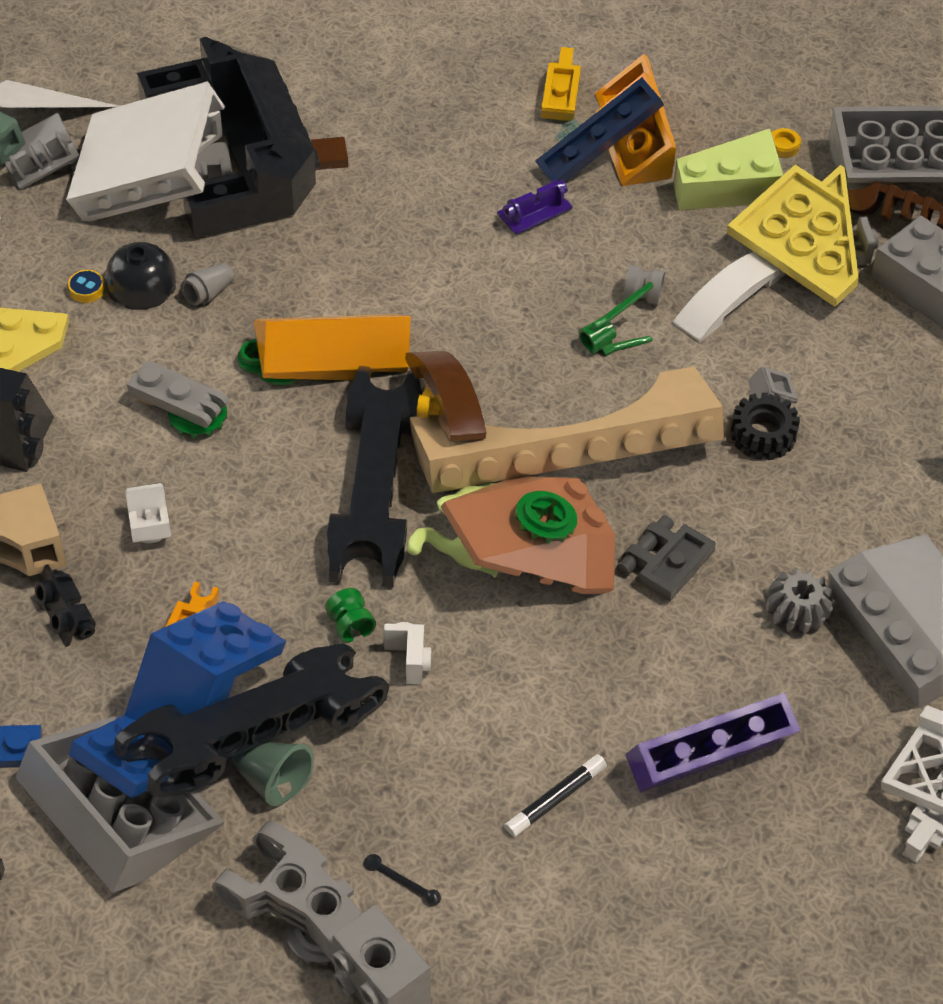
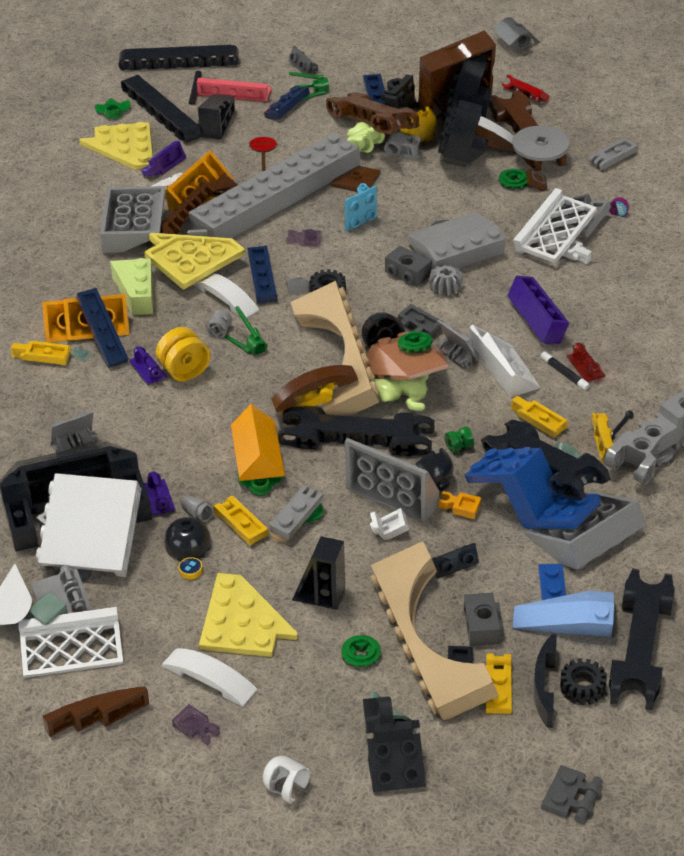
camera: 85 degrees left, 10 degrees down
(179, 333) = (241, 520): none -> yellow plate
(222, 500) = (390, 481): none -> light grey slope
(228, 242) = (158, 494): none -> dark purple hinge
(258, 572) = (439, 467): none -> black cylinder
(362, 838) = (601, 434): none -> yellow hinge
(363, 132) = (78, 428): none -> light grey hinge
(409, 638) = (483, 415): white bracket -> none
(415, 742) = (539, 416): none -> yellow hinge
(540, 232) = (183, 354): none -> yellow wheel
(564, 685) = (502, 362): none -> white slope
(572, 829) = (585, 363): none -> clear red hinge
(598, 608) = (457, 346): none -> light grey hinge
(629, 491) = (381, 326): none -> black cylinder
(786, 142) = (103, 269): yellow tile -> none
(790, 336) = (262, 274): none -> dark blue plate
(835, 537) = (408, 266): none -> dark grey brick
(910, 399) = (306, 238): none -> plate

